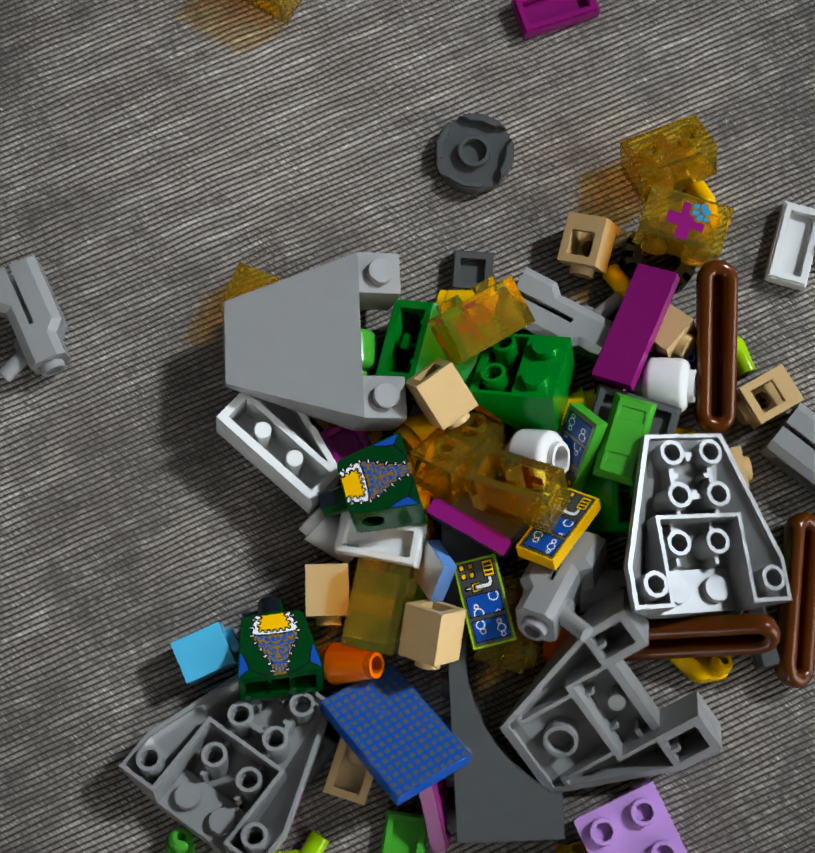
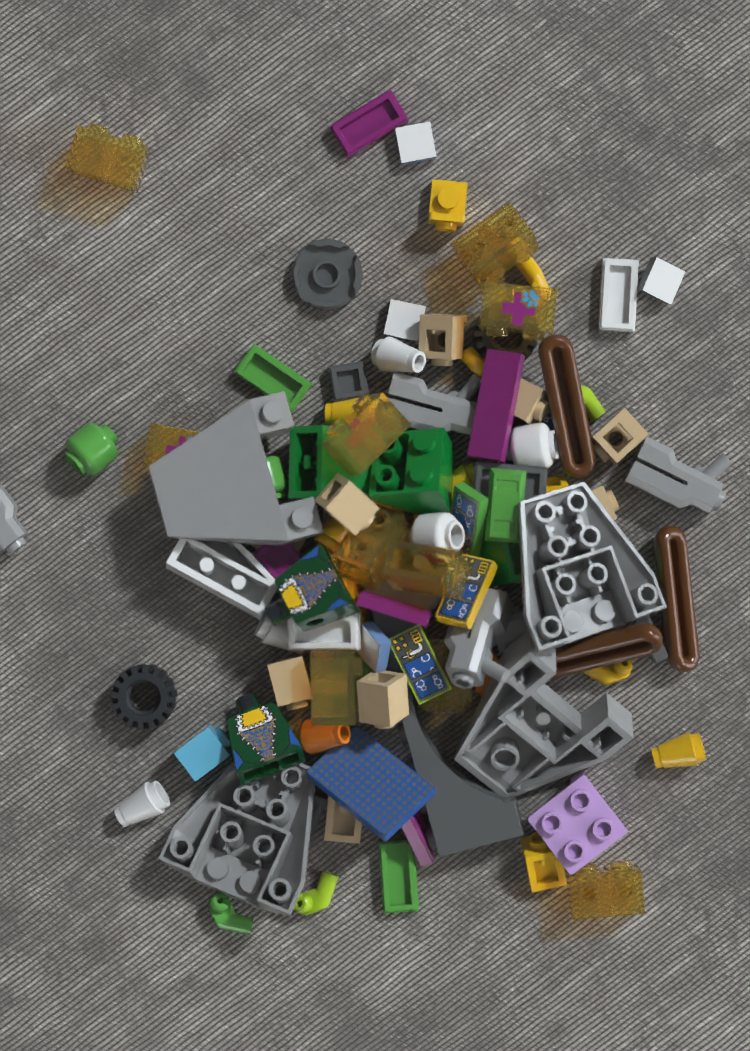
camera: 10 degrees left, 10 degrees up
(119, 699) = (143, 804): none -> white cone
(130, 560) = (122, 701): none -> black tyre
(165, 279) = (91, 449): none -> bright green head
(378, 235) = (272, 376): none -> bright green tile
(531, 251) = (396, 356): none -> white cone
(547, 220) = (403, 320): none -> white tile
(601, 37) = (415, 143): none -> white tile
(623, 108) = (447, 205): none -> yellow bracket
(770, 783) = (680, 751): none -> yellow cone

